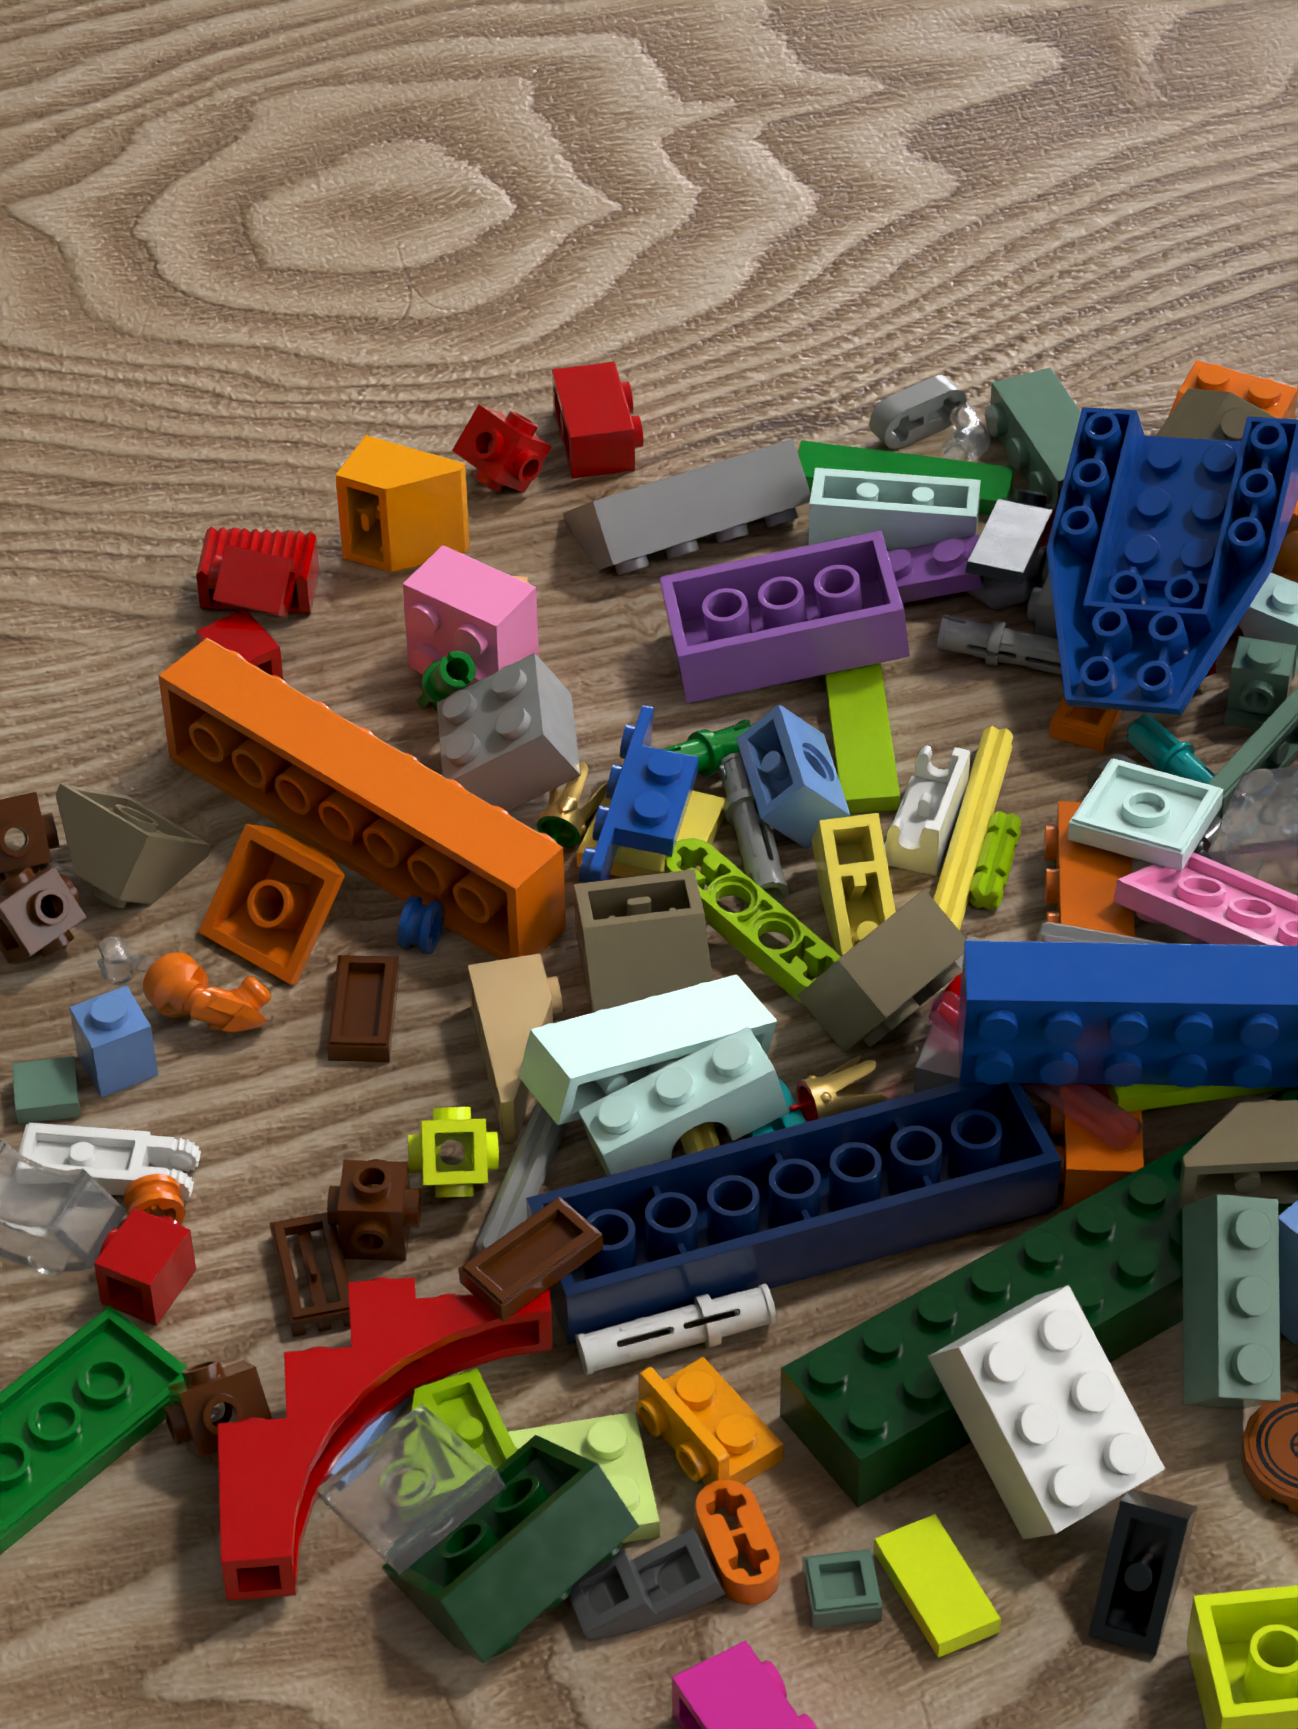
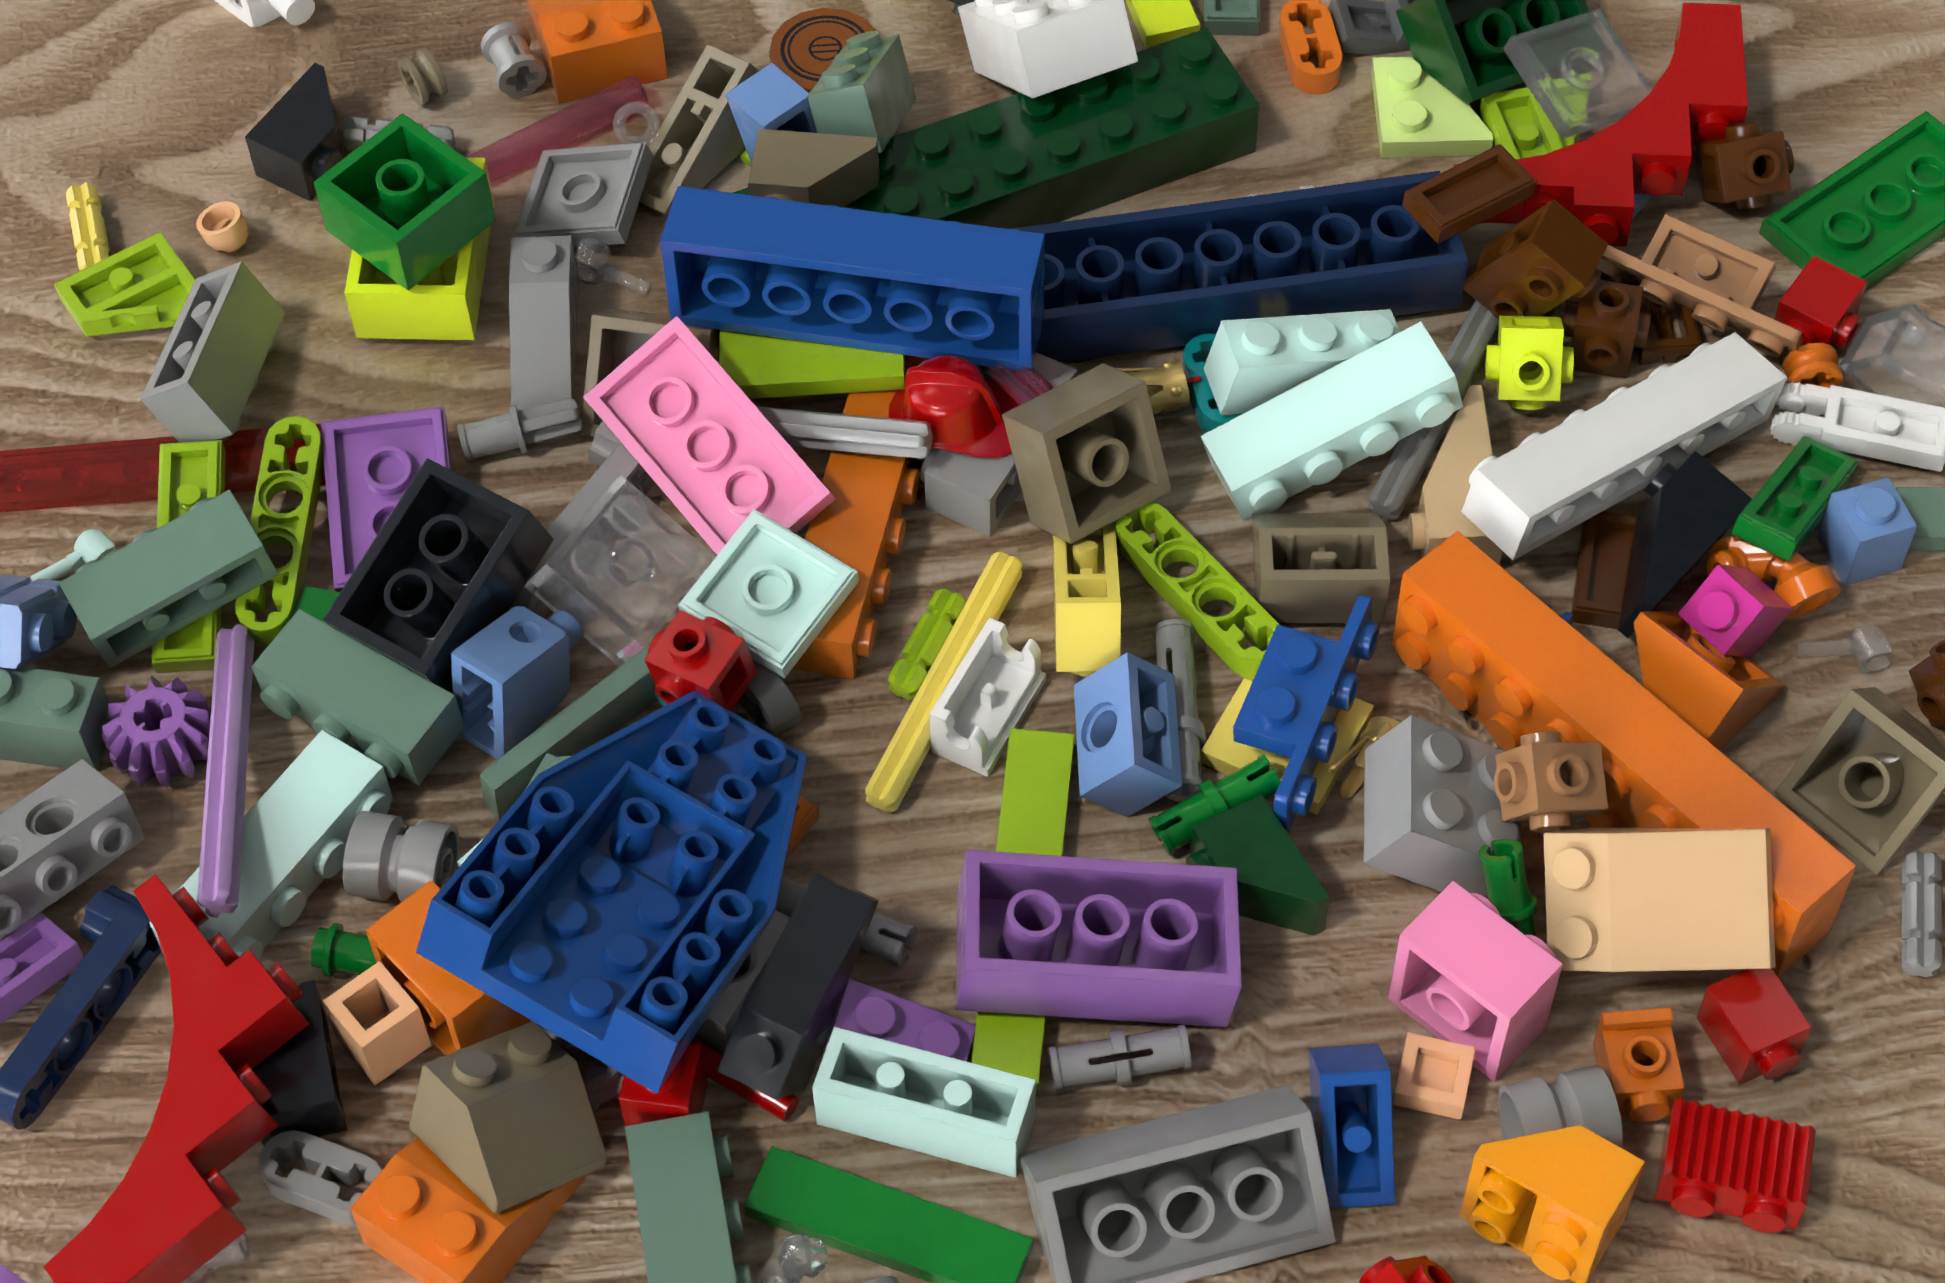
camera: 170 degrees left, 10 degrees up
(92, 753) = (1921, 914): none -> light grey axle
(183, 1053) = (1795, 498): none -> green tile
(246, 939) = (1735, 611): none -> dark pink brick
(253, 580) = (1743, 1072): red brick -> none
(277, 1244) = (1708, 277): none -> medium nougat bracket
(300, 1003) = (1675, 531): none -> black slope
(333, 611) = (1627, 1043): none -> orange brick
(342, 667) = (1660, 898): none -> tan slope
(350, 1060) = (1621, 444): none -> white brick
(380, 570) = (1575, 1099): none -> light grey wheel
(419, 710) = (1550, 782): none -> medium nougat brick
(450, 1194) = (1537, 264): none -> reddish brown brick
(561, 564) = (1353, 1123): none -> blue slope
(677, 699) = (1271, 872): none -> dark green slope
(706, 1424) = (1324, 129): light orange bracket -> none
(1185, 739) = (700, 658): none -> red brick

